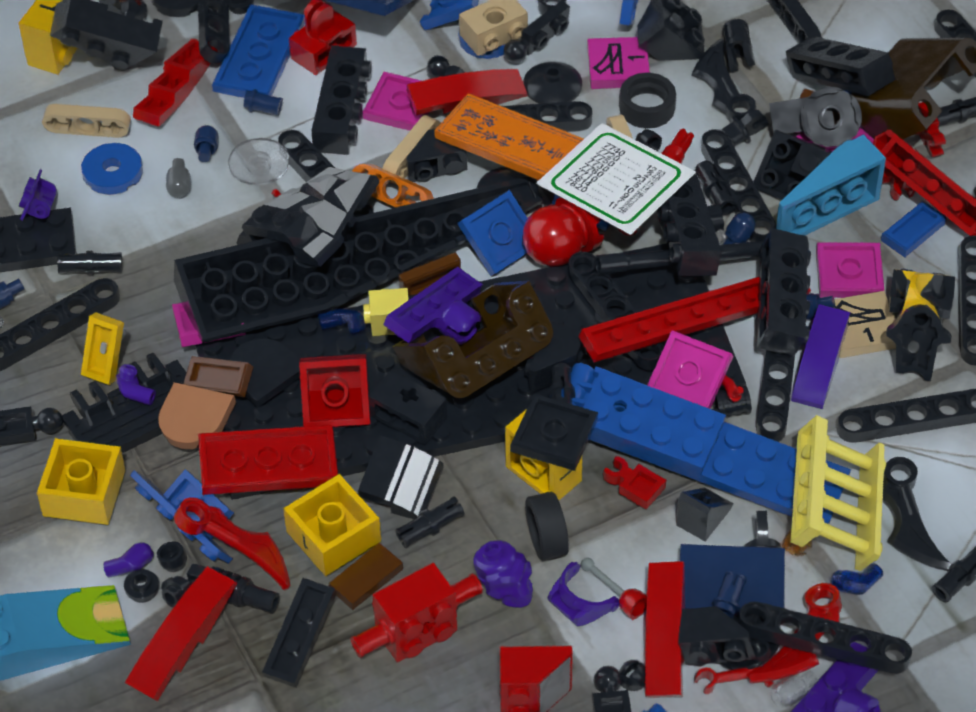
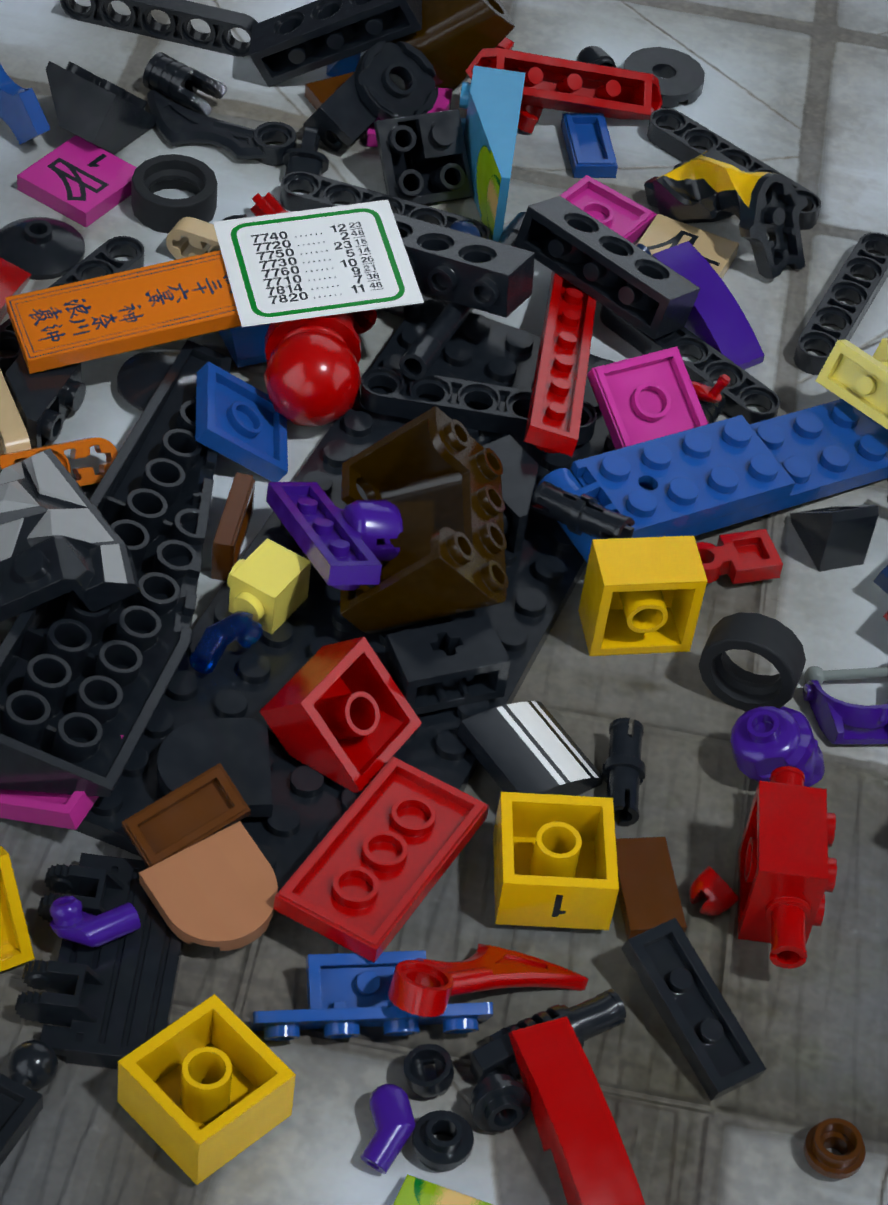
camera: 60 degrees left, 5 degrees down
(554, 432) = (662, 546): black tile -> none

